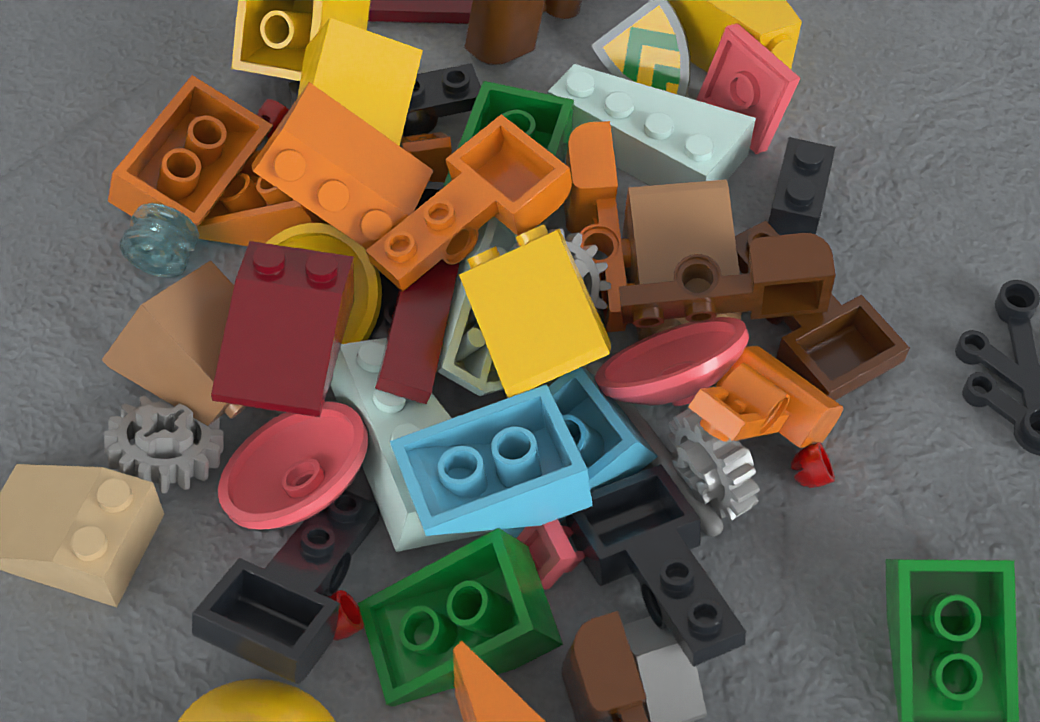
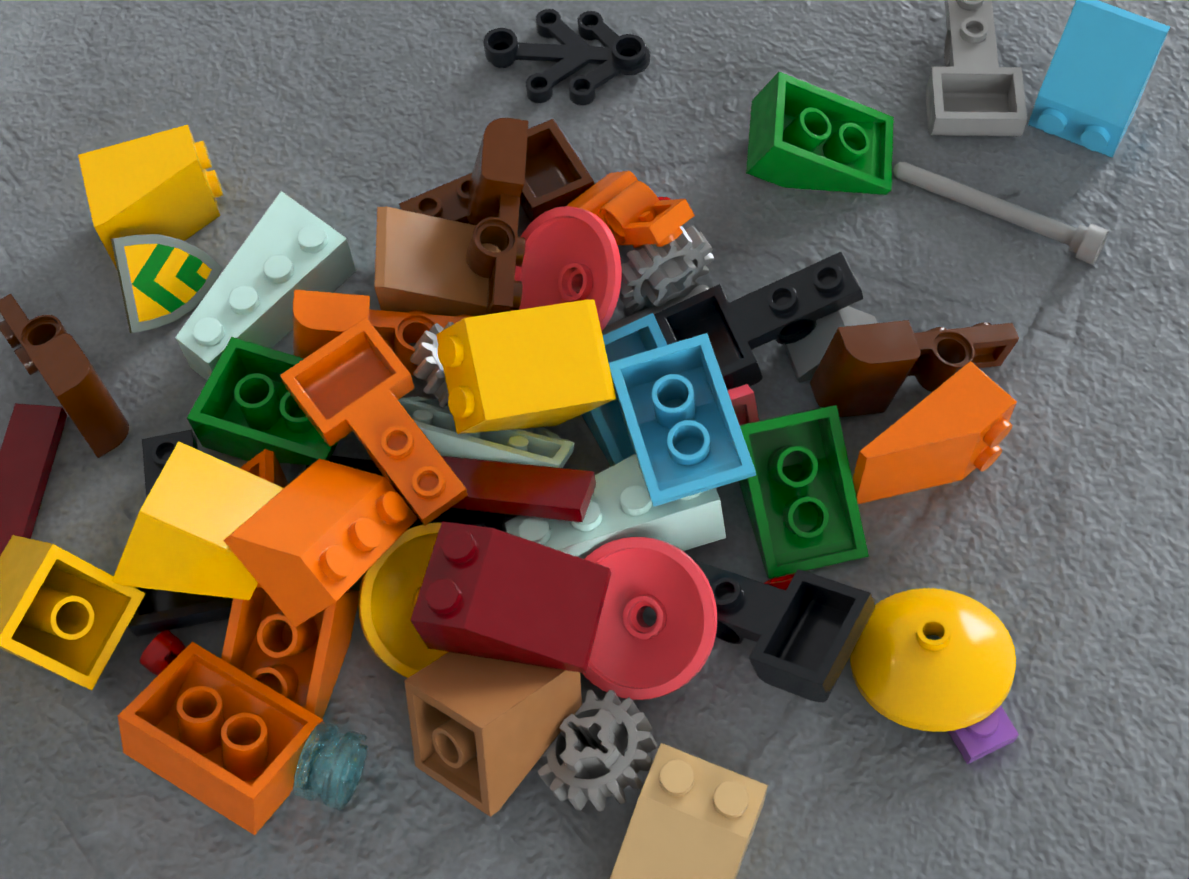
camera: 80 degrees left, 5 degrees up
(749, 82) = (231, 194): coral plate -> none
(801, 187) = (362, 176): black brick -> none

